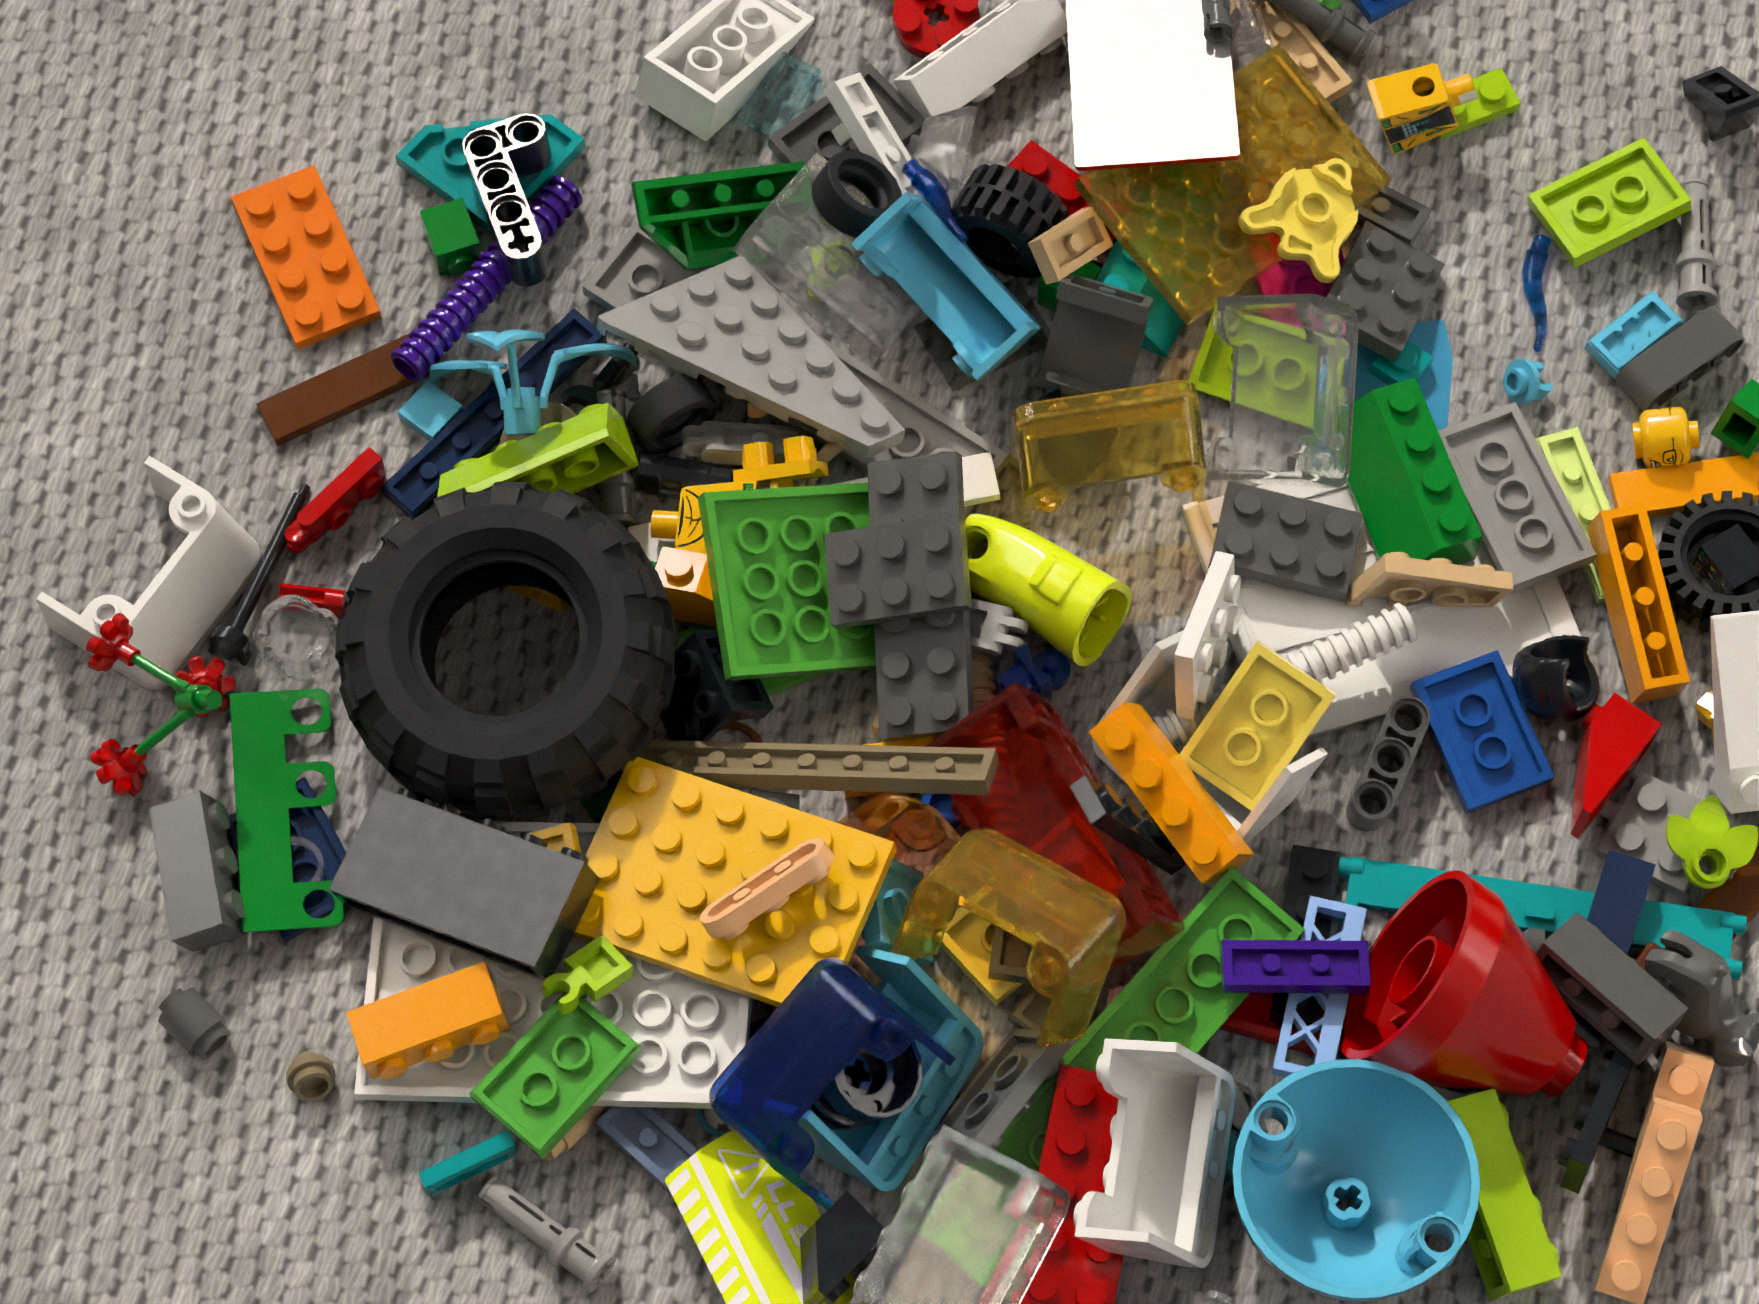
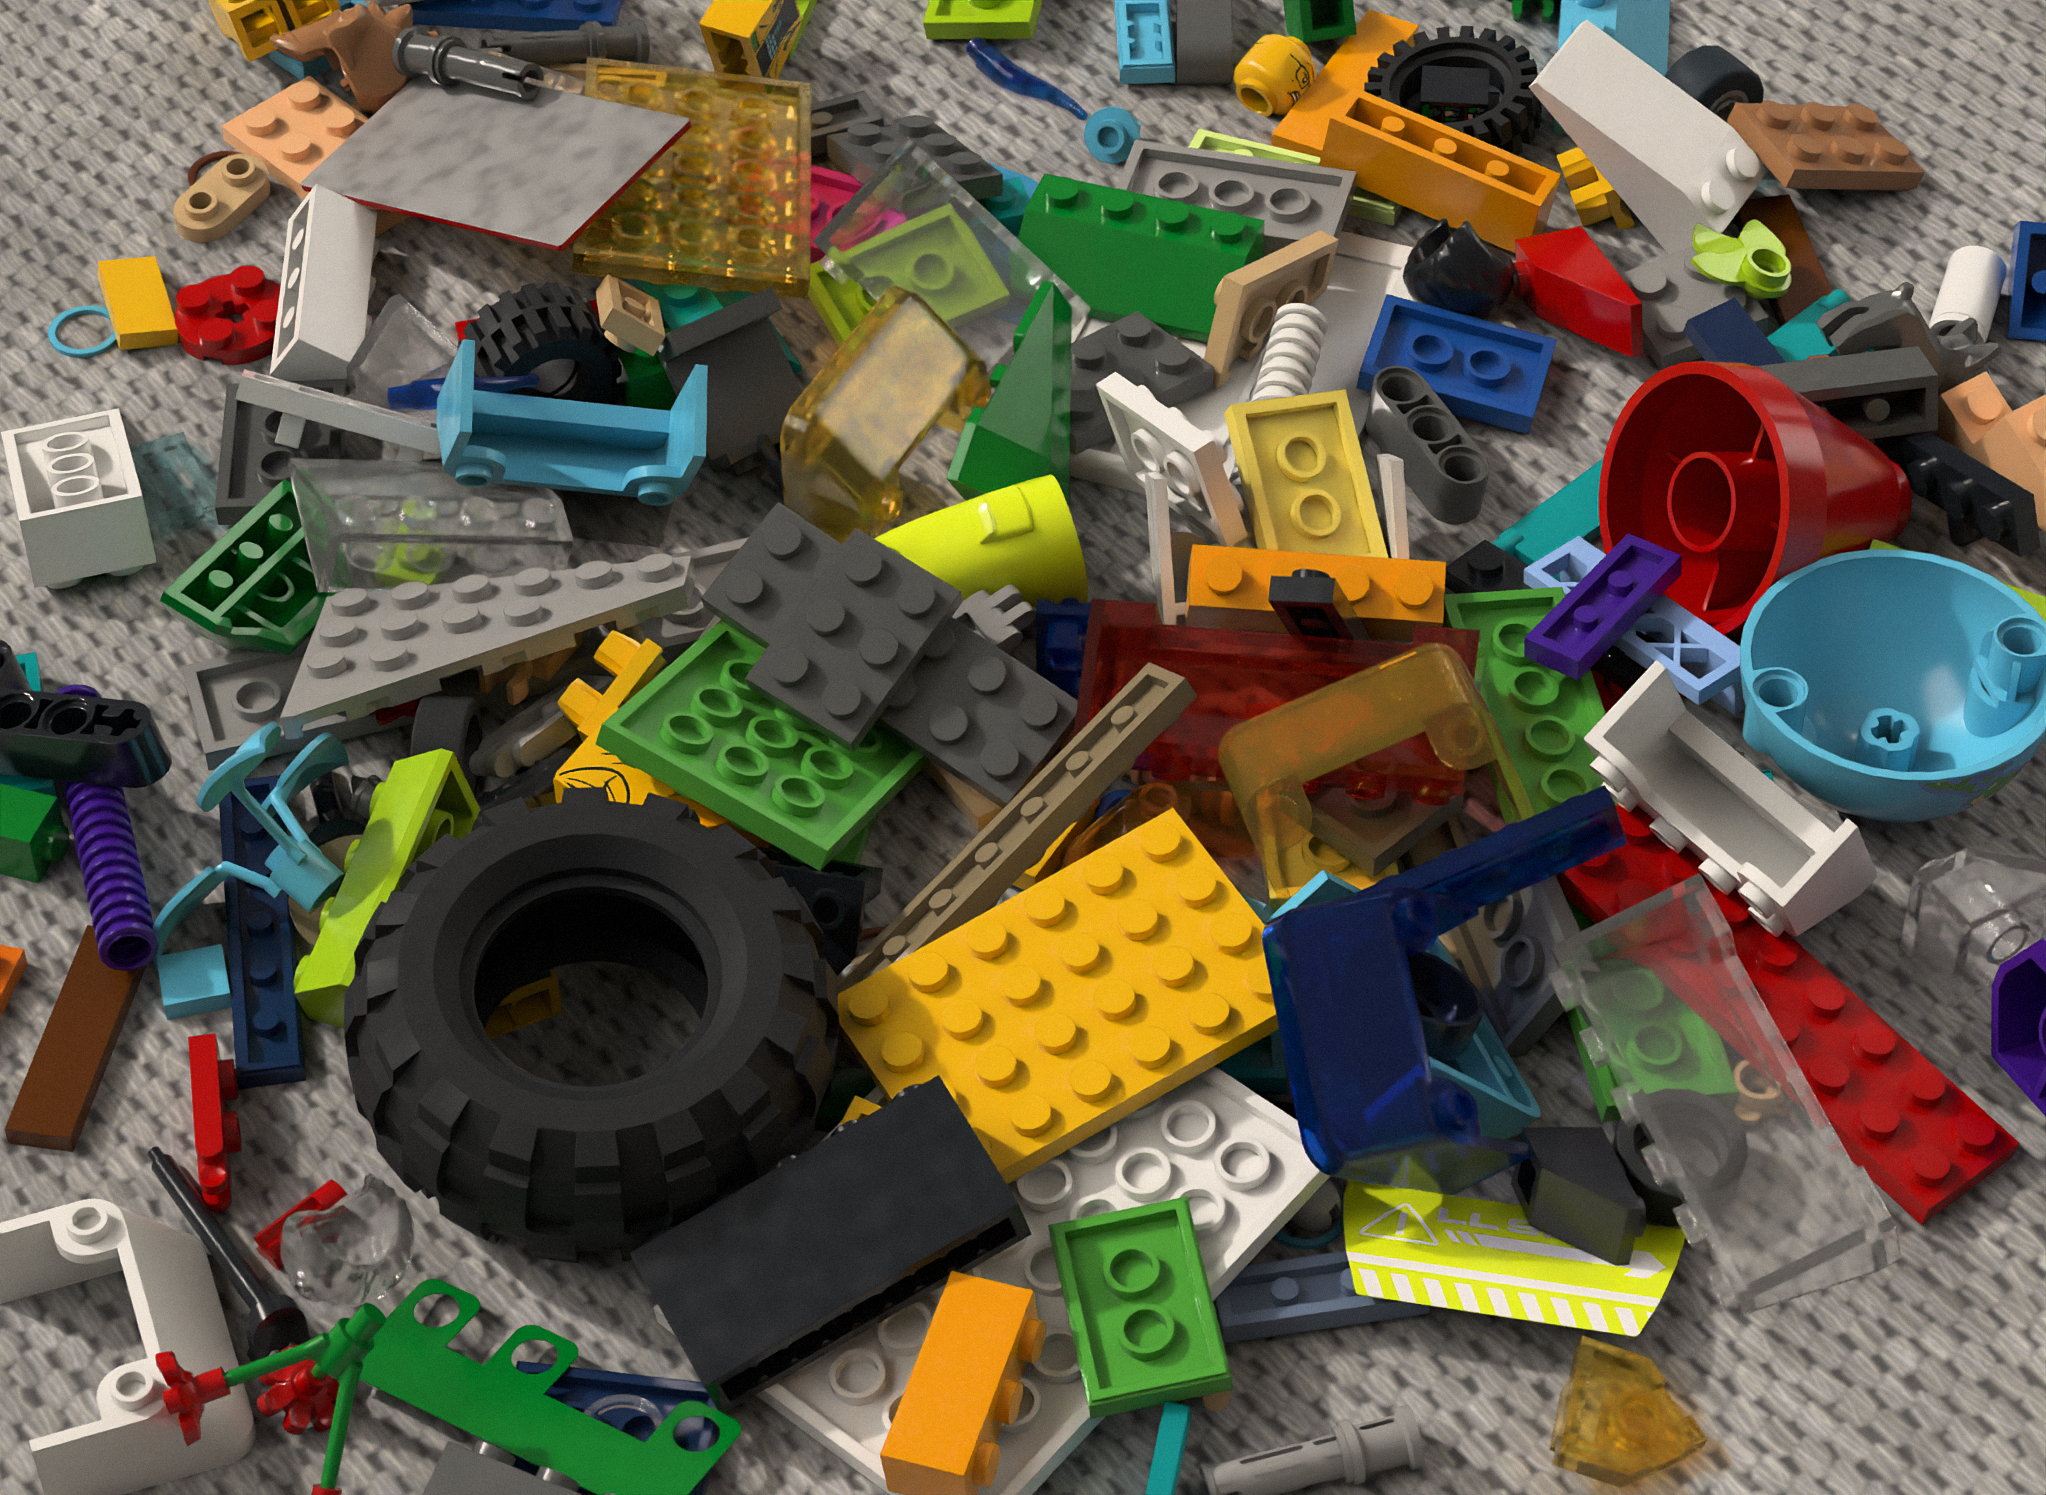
camera: 50 degrees left, 20 degrees down
(589, 971) = (1056, 1188): lime plate -> none
(767, 889) = (1129, 935): light nougat plate -> none
(867, 176) = (379, 446): black tyre -> none
(1012, 1055) = (1520, 852): none -> clear blue plate
(1170, 537) = (1028, 416): none -> green wedge
(1310, 215) = (783, 142): light yellow tile -> none

